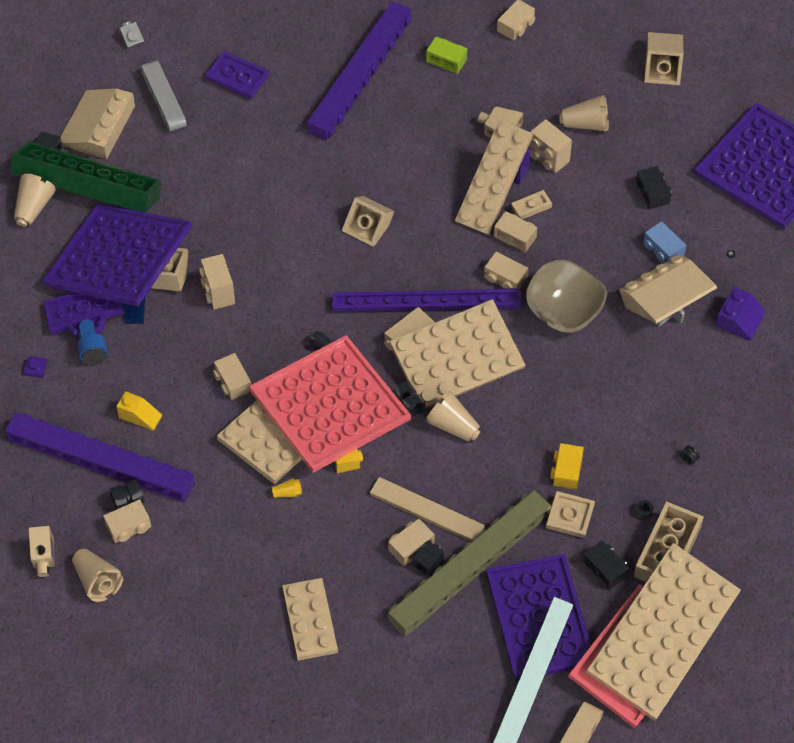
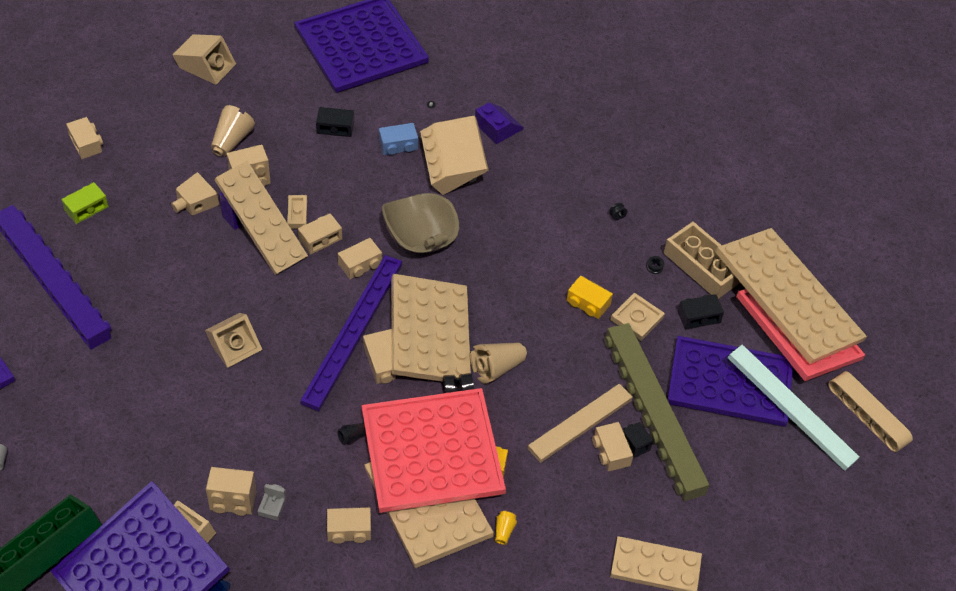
camera: 70 degrees left, 5 degrees down
(226, 316) = (272, 502): none -> light grey bracket

